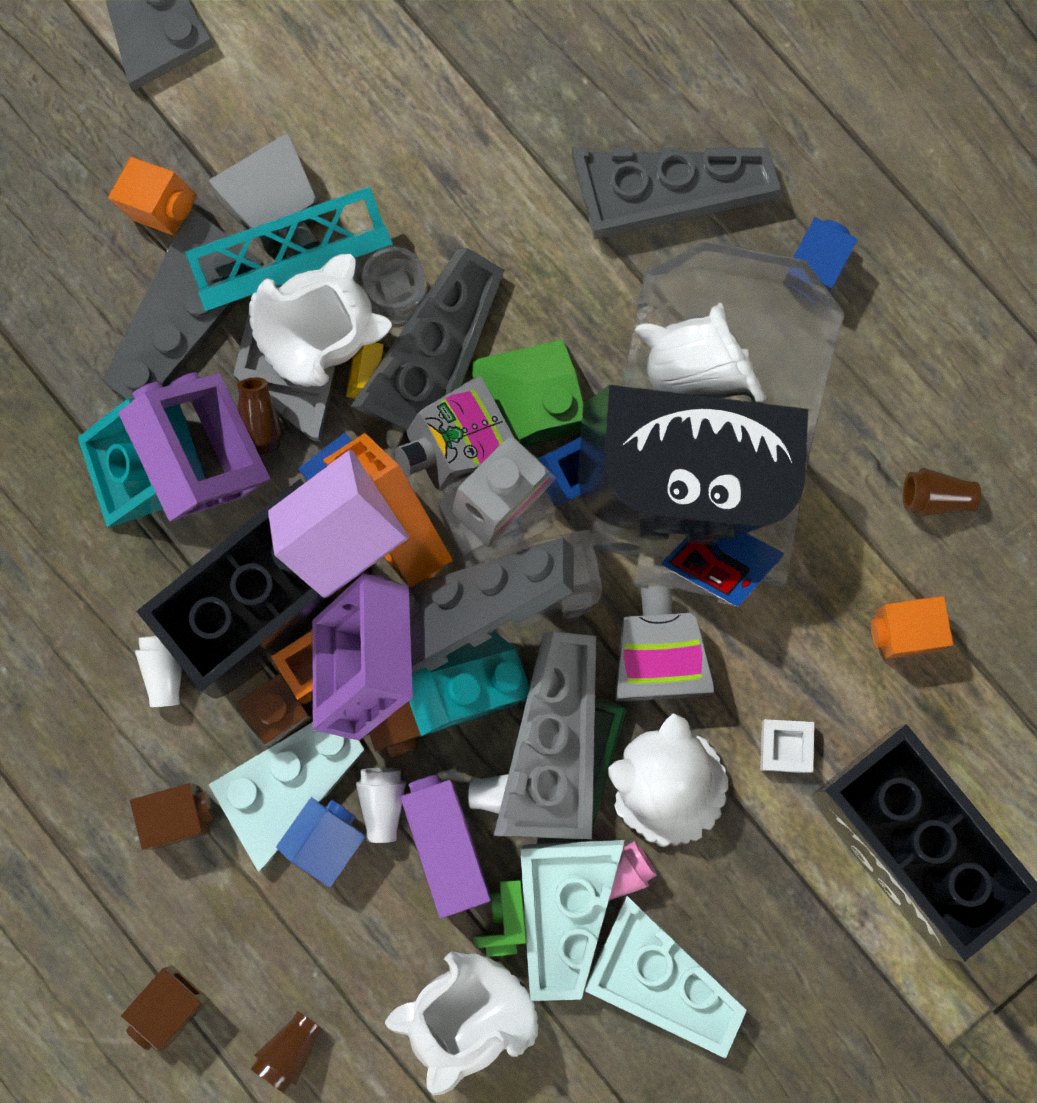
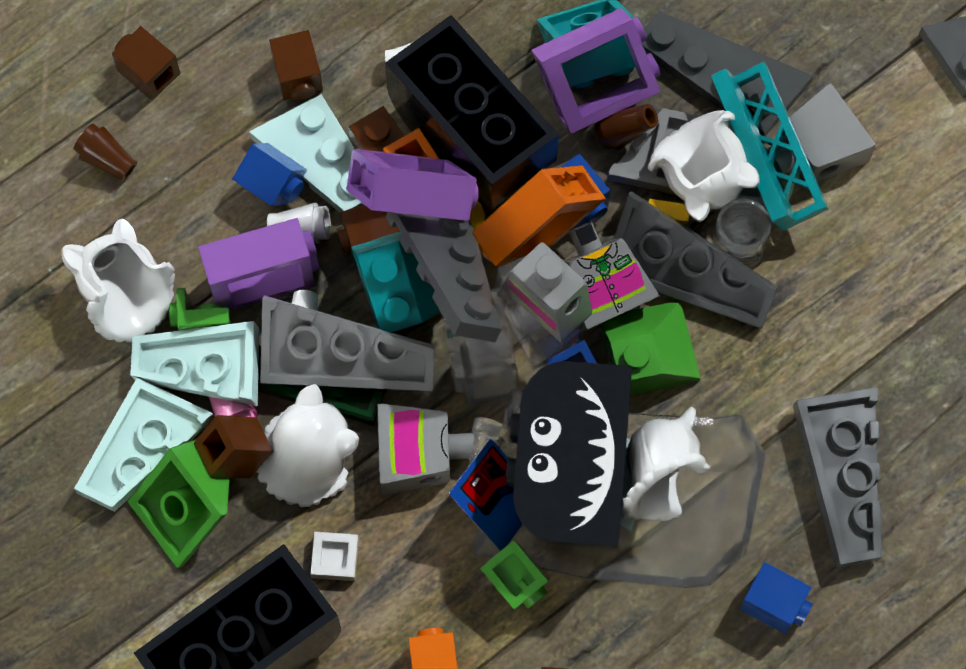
camera: 90 degrees right, 10 degrees down
(152, 196) = (818, 43): orange brick -> none
(334, 526) = (513, 152): lavender slope -> none
(676, 866) = (233, 446): none -> reddish brown brick
(734, 920) = (181, 502): none -> bright green slope
(814, 536) = (516, 576): none -> bright green bracket

